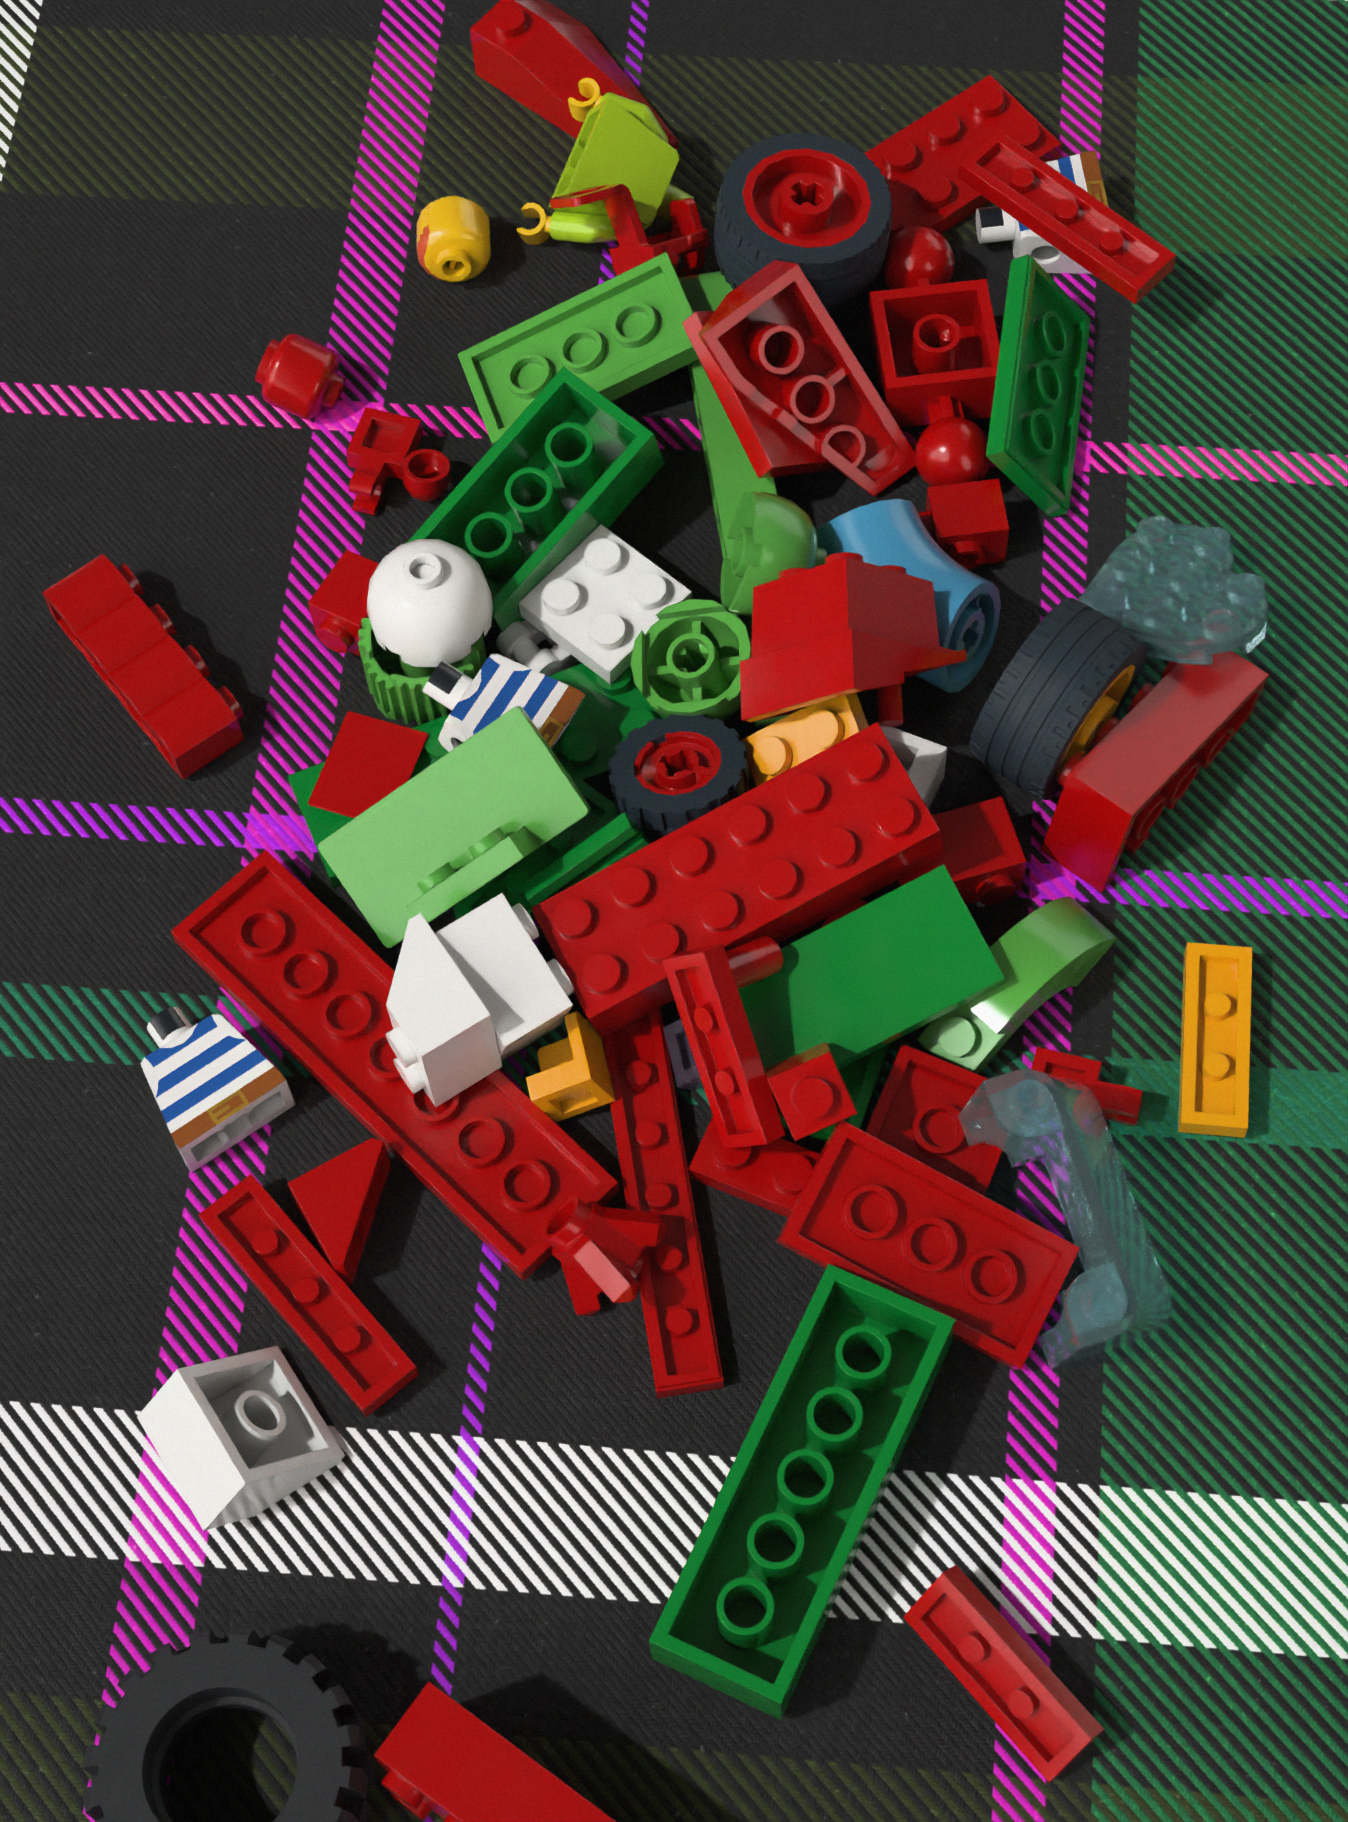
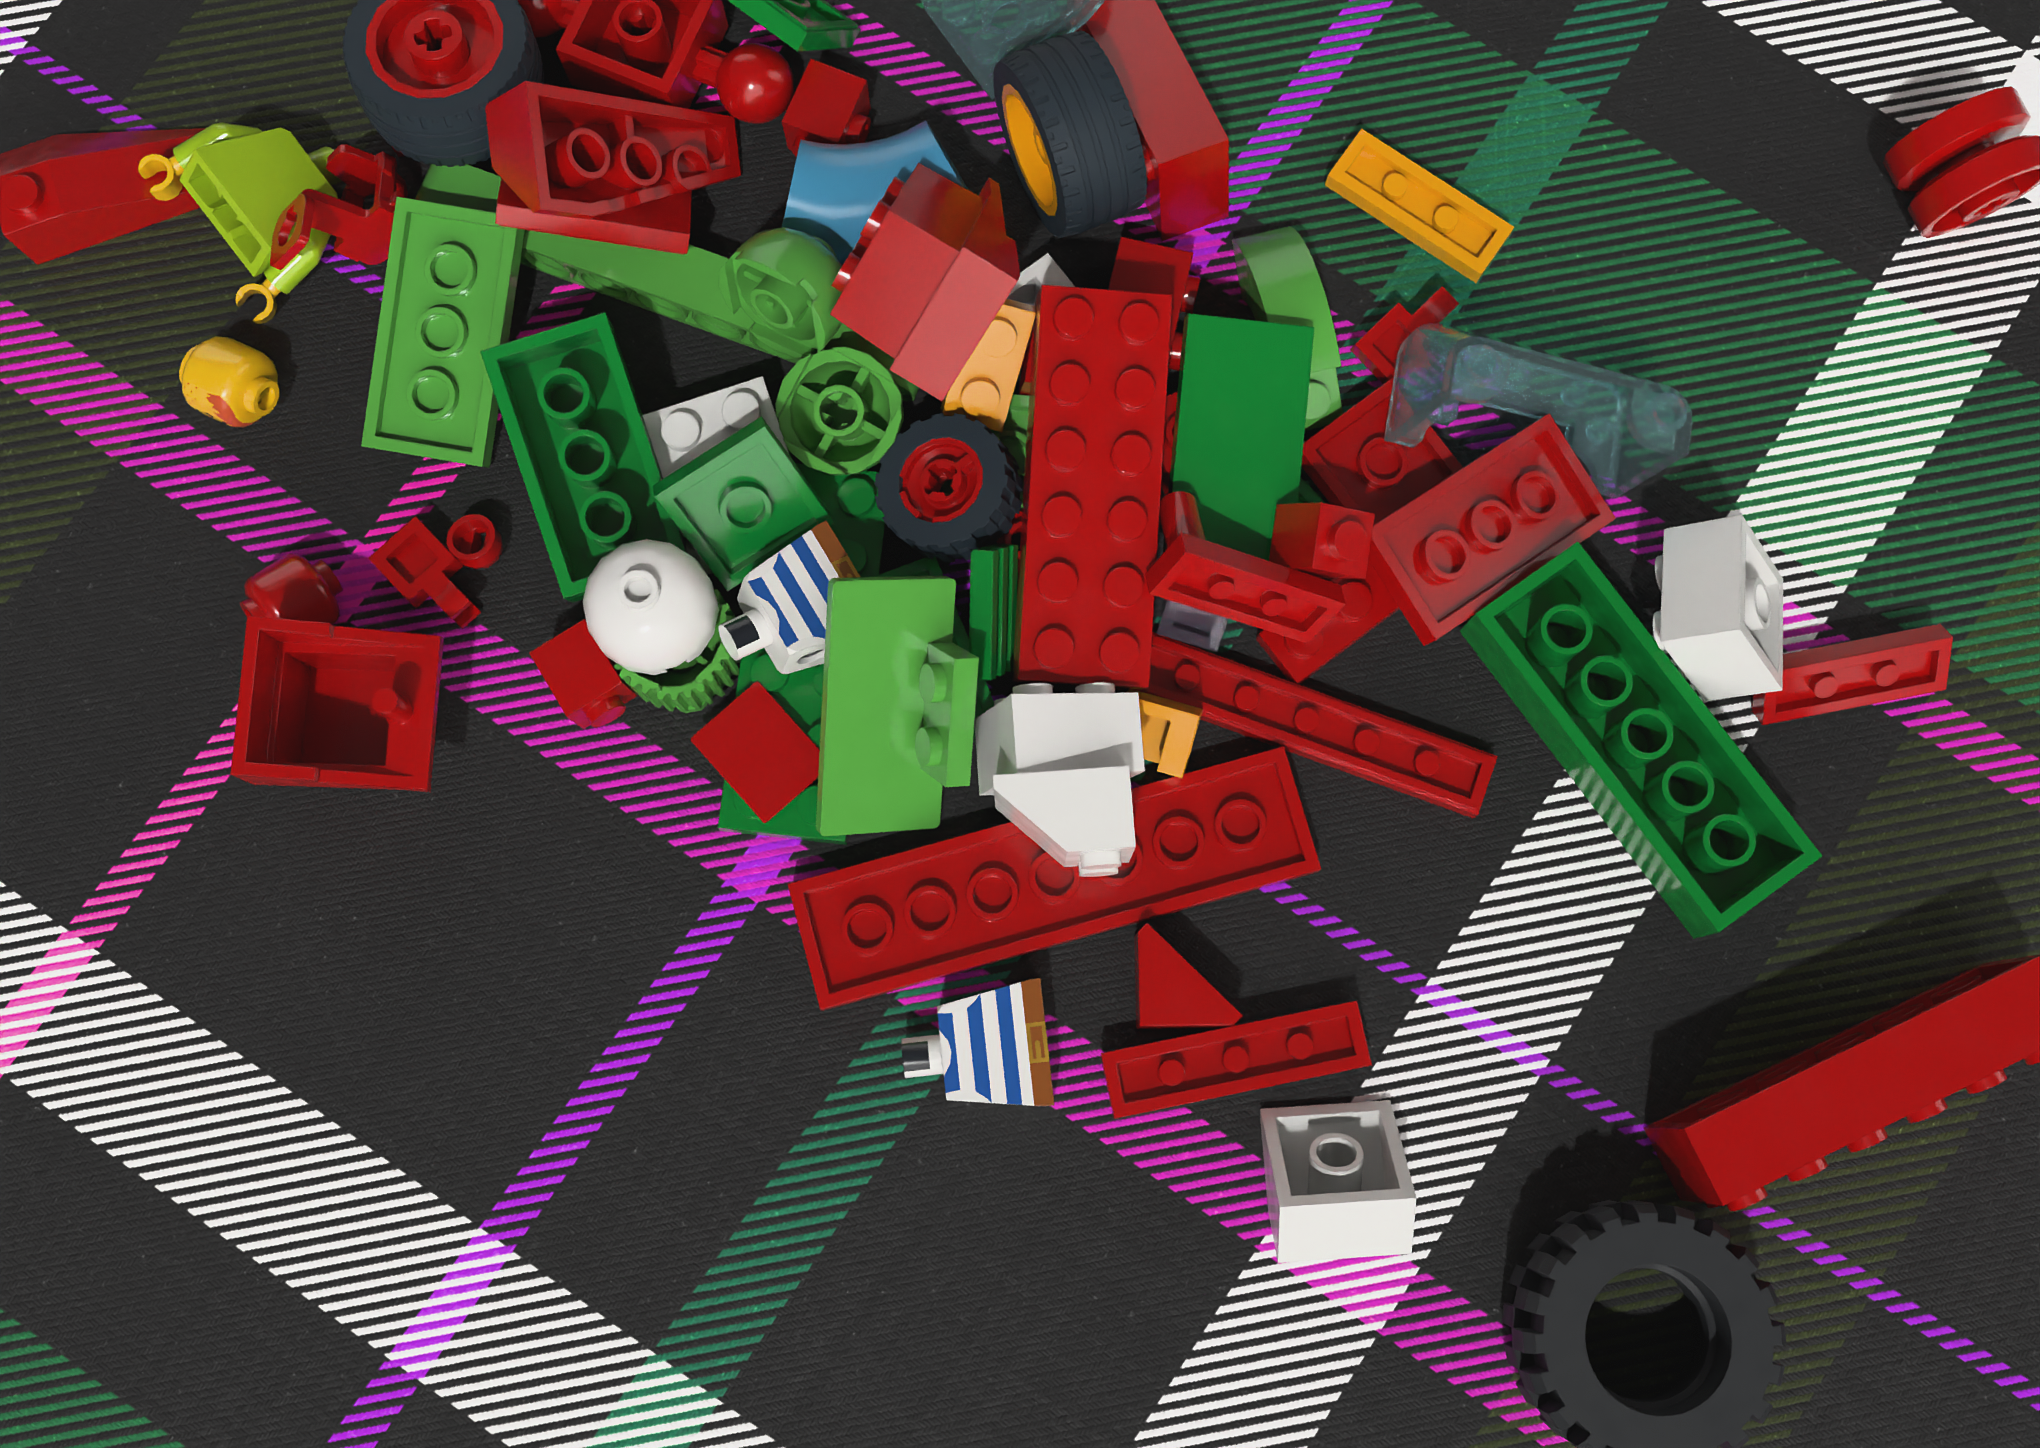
camera: 65 degrees left, 15 degrees up
(145, 666) = (519, 900): red brick -> none
(219, 438) = (336, 706): none -> red piece
(565, 623) = (741, 502): none -> green plate
(601, 1250) = (1346, 791): red rock -> none
(971, 1487) = (1720, 608): none -> white brick

